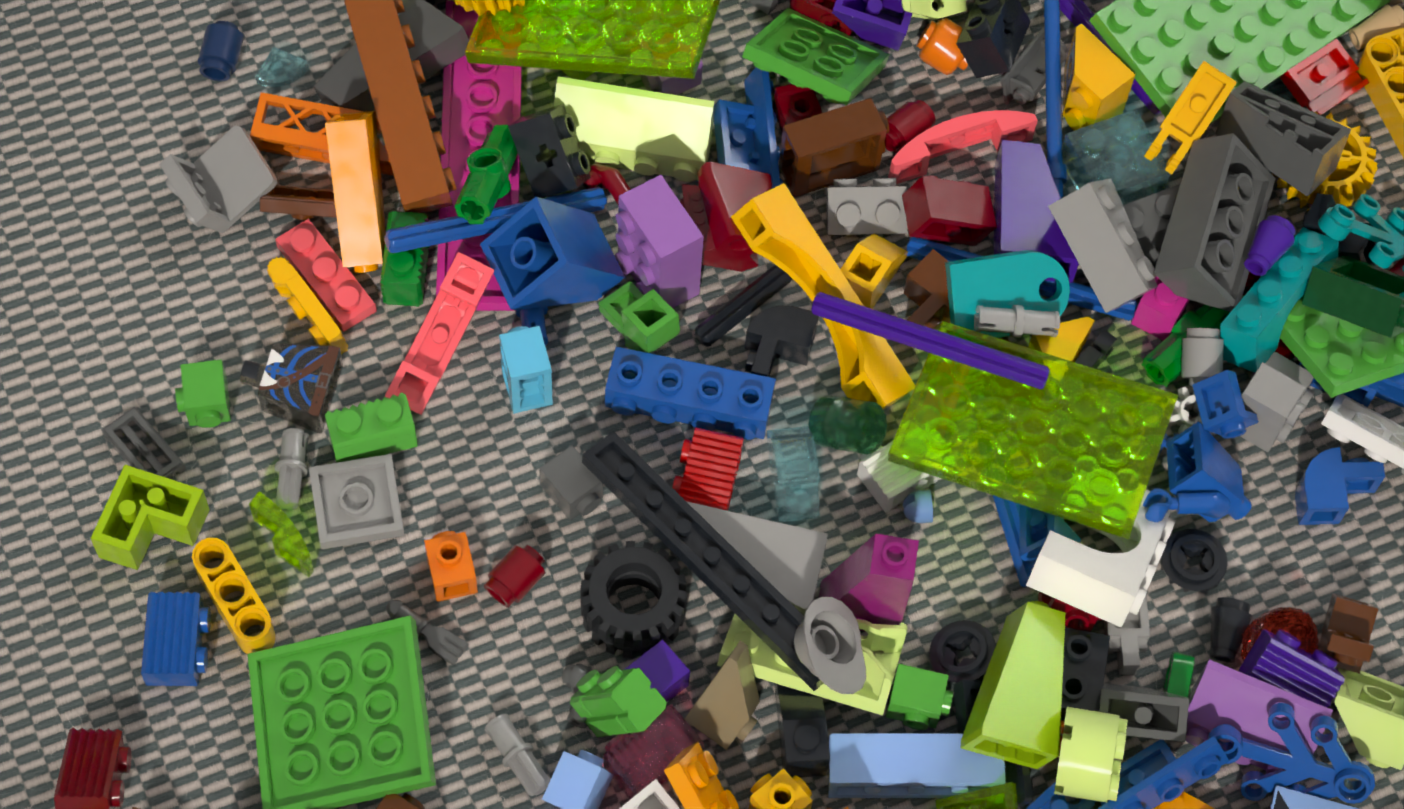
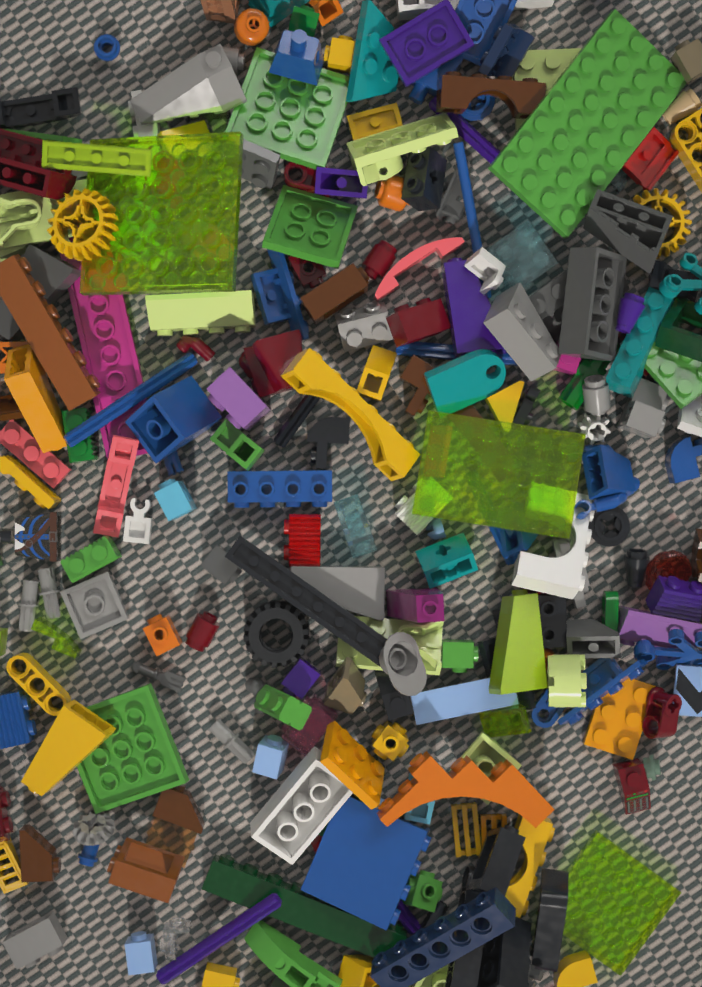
camera: 10 degrees left, 25 degrees up
(247, 694) = (66, 745): none -> yellow slope
(252, 479) = (28, 605): none -> light grey axle
(457, 403) = (138, 527): none -> white plate
(487, 176) = (117, 385): green piece -> none
(548, 171) = (152, 343): black brick -> none
(848, 424) = (382, 491): clear green wheel -> none
(930, 340) = (423, 433): dark purple axle -> none
(943, 546) = (446, 560): none -> teal brick
(957, 637) = (469, 625): black gear -> none
(1016, 321) = (475, 400): light grey pin -> none
(1063, 152) = (487, 269): none -> white bracket
(1094, 81) = (495, 205): yellow slope -> none
(1192, 112) = (566, 227): yellow hinge -> none
(1222, 405) = (613, 431): blue bracket -> none

